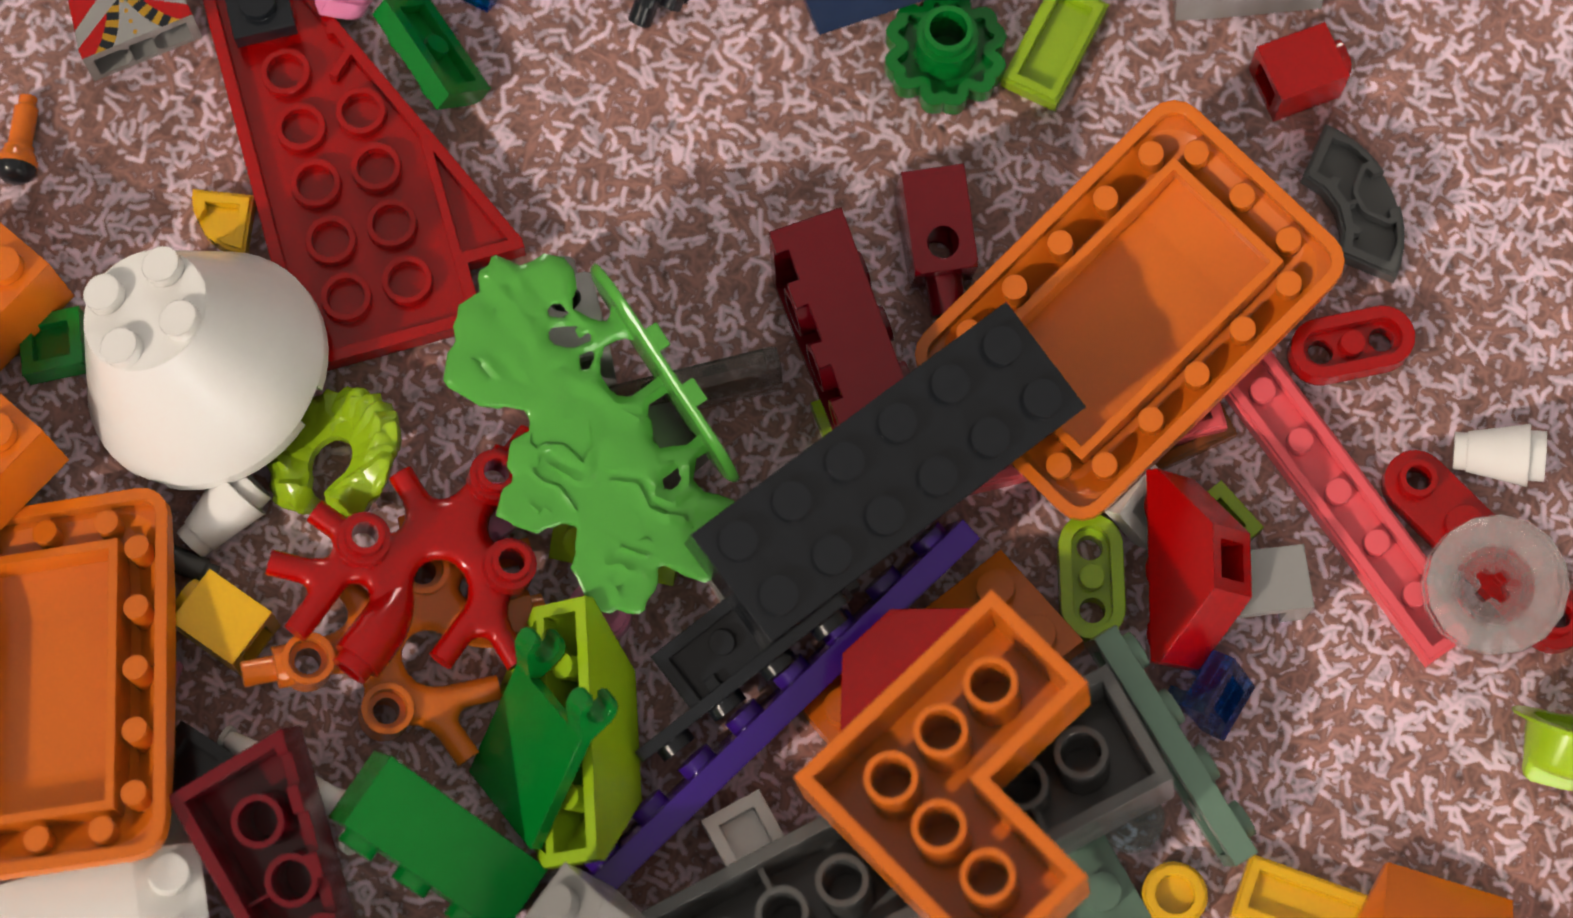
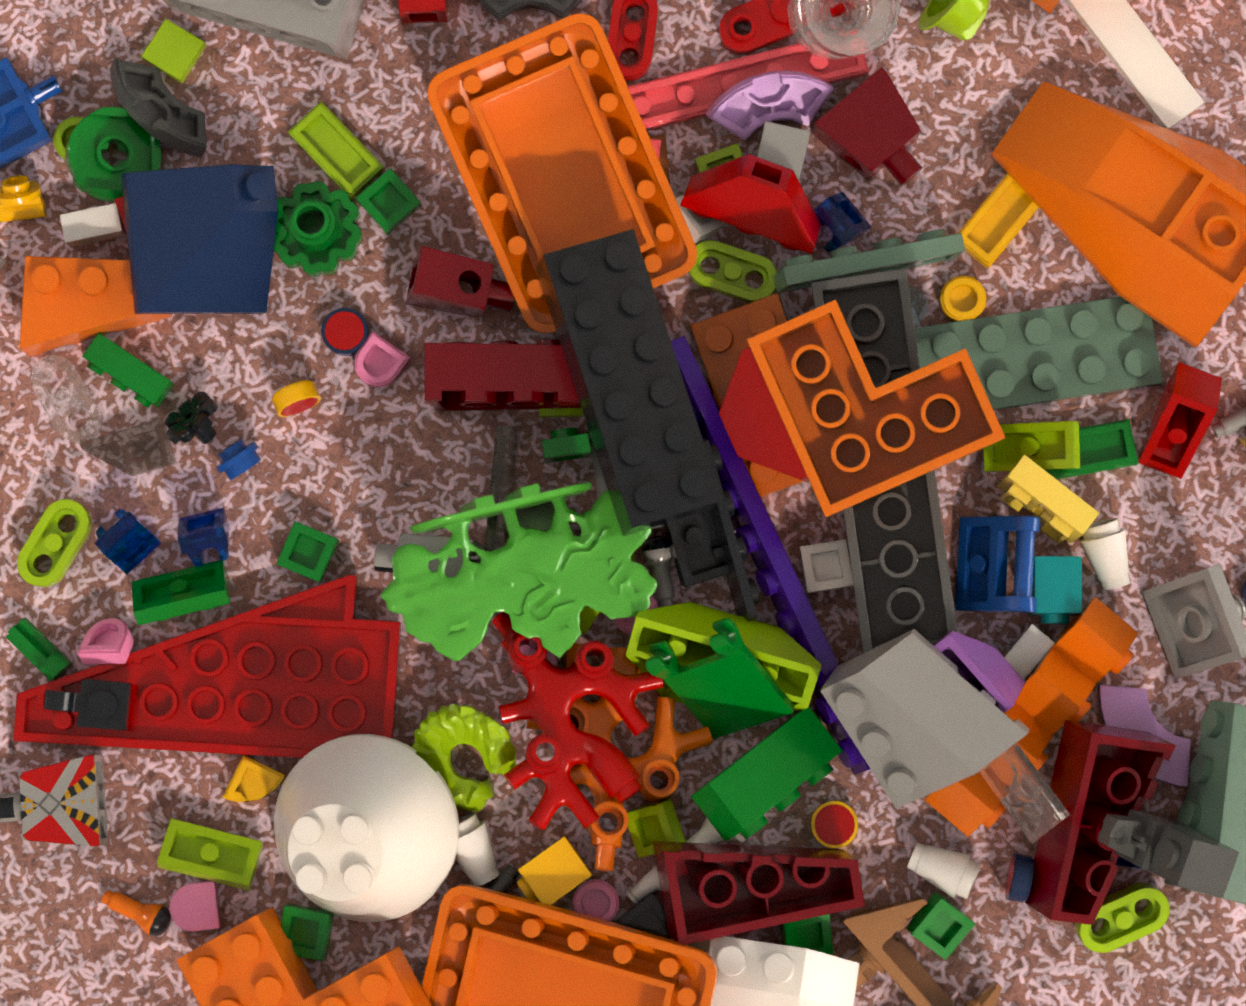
camera: 70 degrees left, 10 degrees up
(47, 208) = (196, 907): none -> bright pink tile
(115, 196) = (210, 854): none -> lime plate
(205, 692) = (596, 899): none -> bright pink tile
(327, 727) = (654, 823): none -> lime plate
(516, 51) = (203, 532): none -> clear blue tile
(534, 183) = (307, 552): none -> green plate
(622, 60) = (238, 458): none -> blue plate
(679, 615) = (658, 556): none -> light grey piece
(723, 101) = (296, 398): none -> yellow tile
(777, 439) = (566, 445): none -> green plate
(807, 185) = (379, 362): none -> bright pink tile
(830, 133) = (344, 331): none -> red tile
(1013, 126) = (388, 201): none -> green plate
(1338, 545) = (769, 98): none -> lavender tile
(1351, 692) = (872, 130): none -> dark red torso

